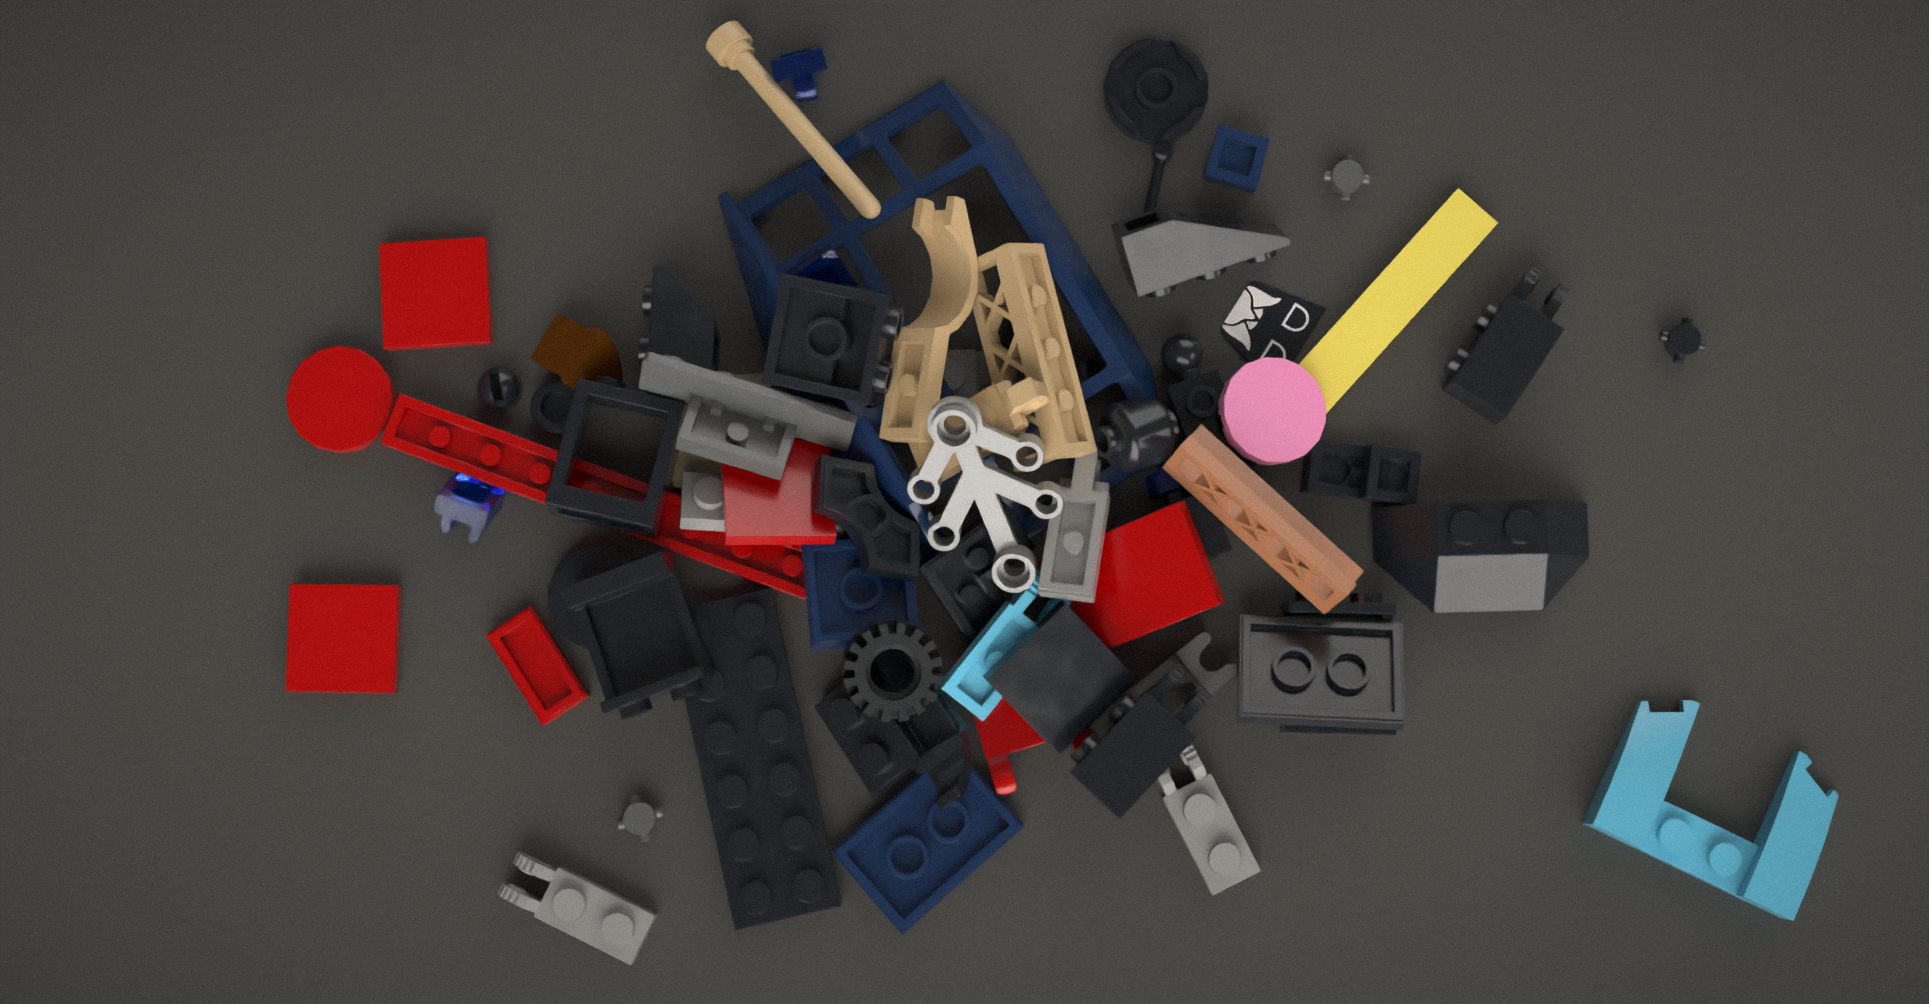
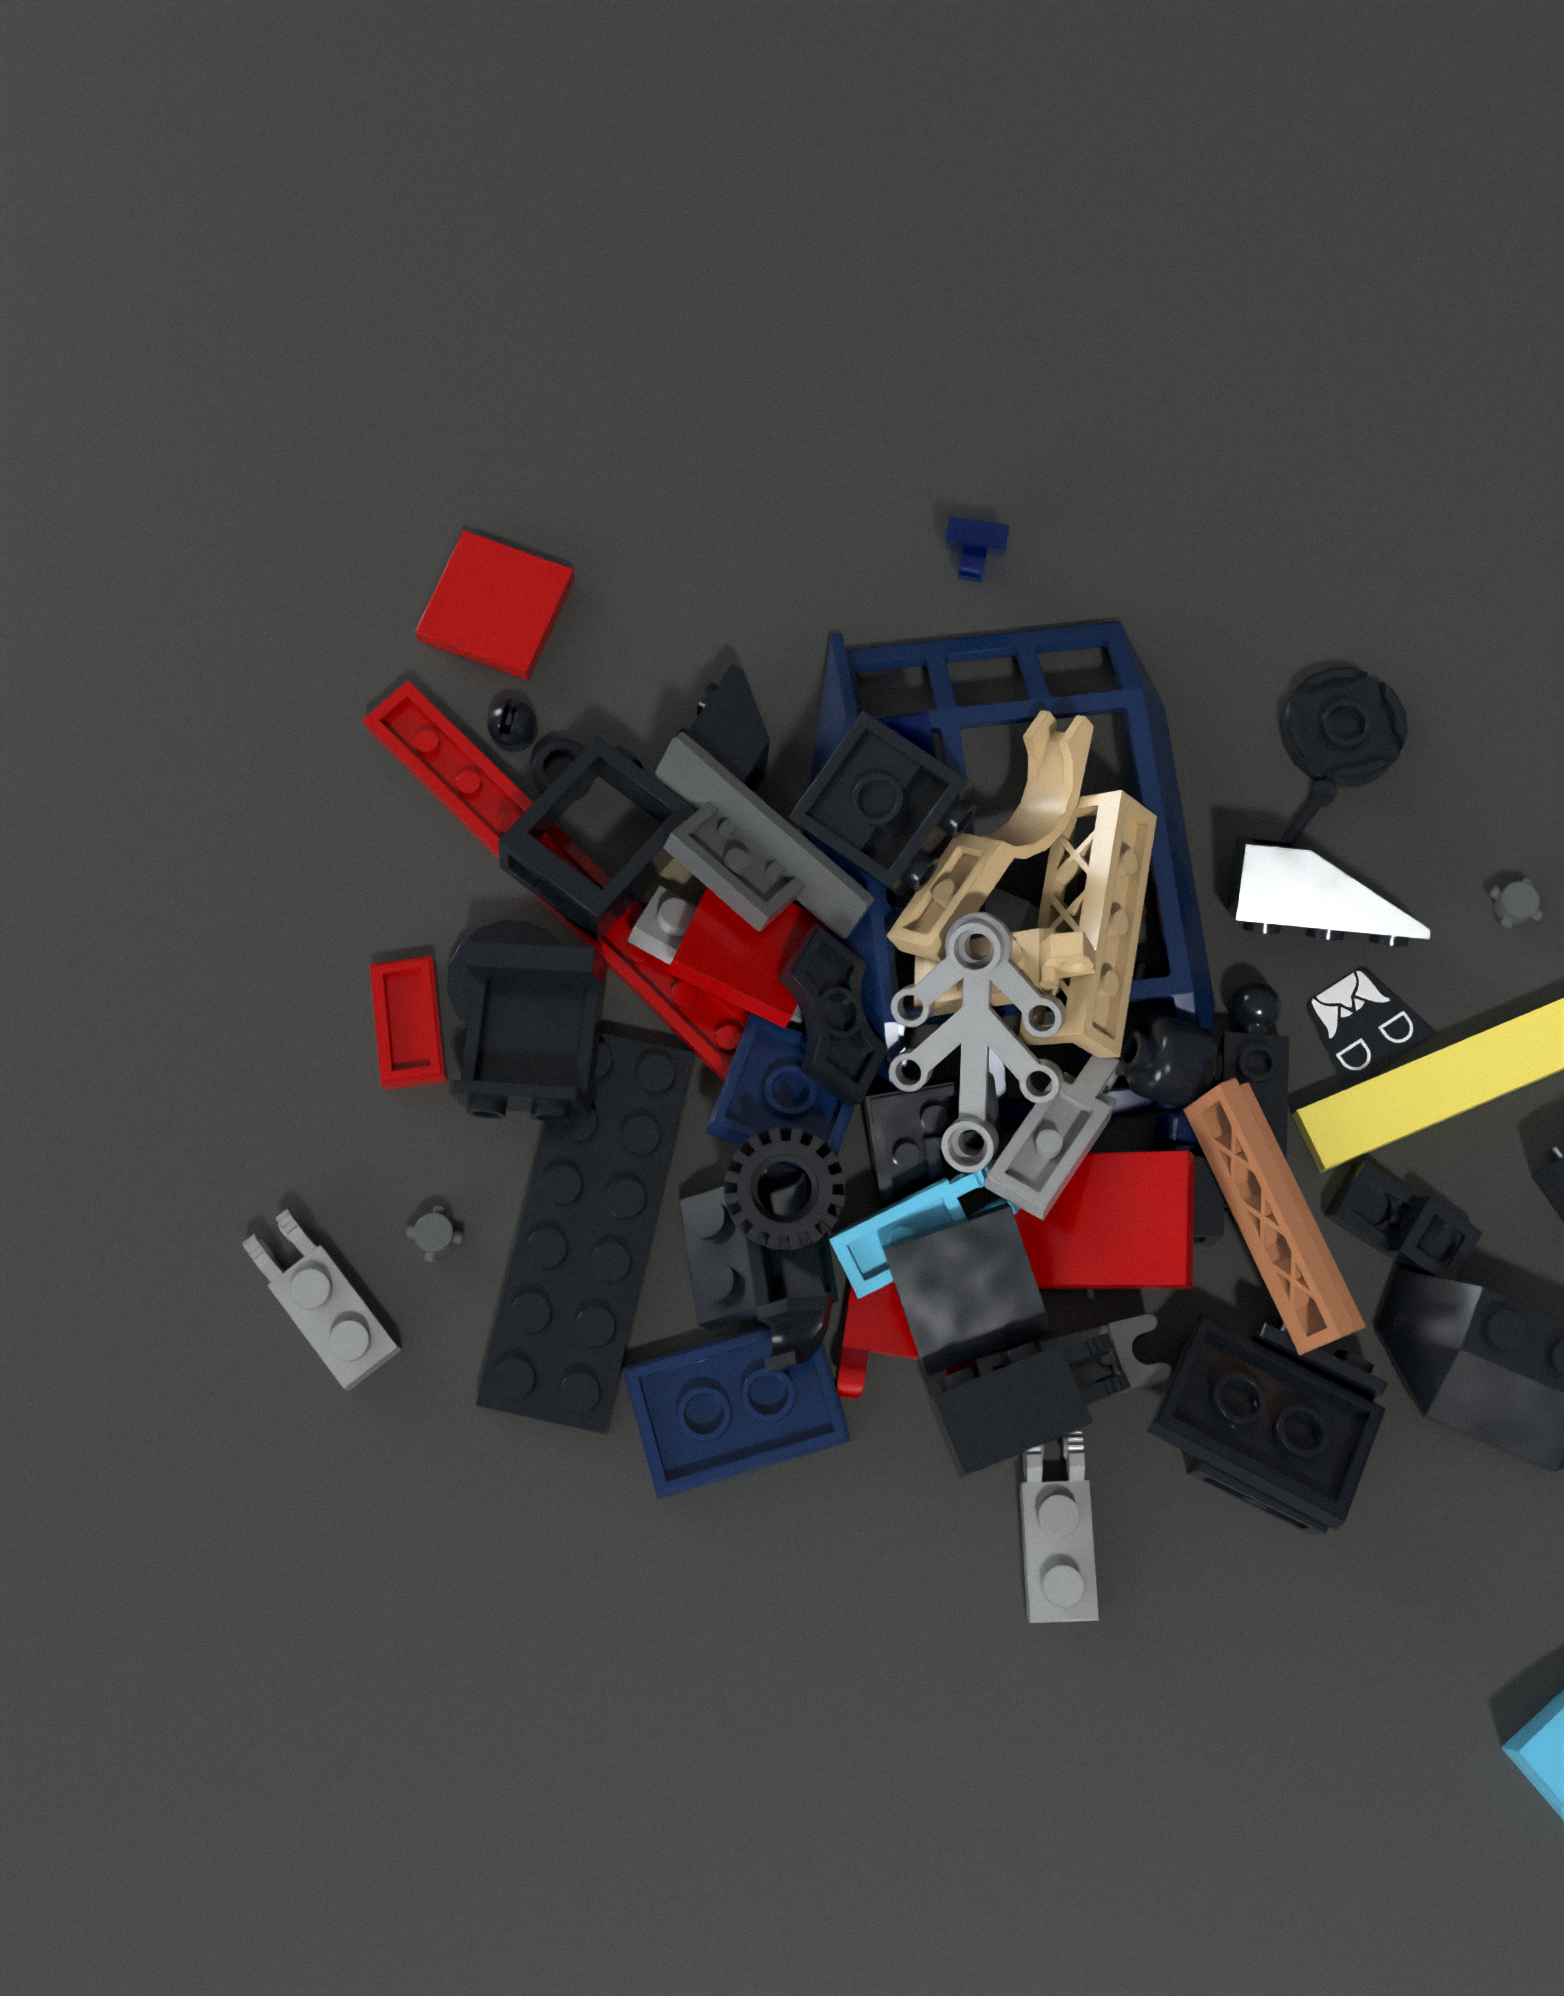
camera: 25 degrees right, 10 degrees down
(340, 399) = (345, 664): red tile -> none
(343, 638) = (223, 903): red tile -> none
(468, 502) = (422, 821): clear blue tile -> none
(577, 352) = (613, 716): reddish brown tile -> none
(733, 48) = (917, 498): tan piece -> none
(1236, 159) = (1403, 830): dark blue plate -> none
(1272, 411) = (1333, 1107): bright pink tile -> none

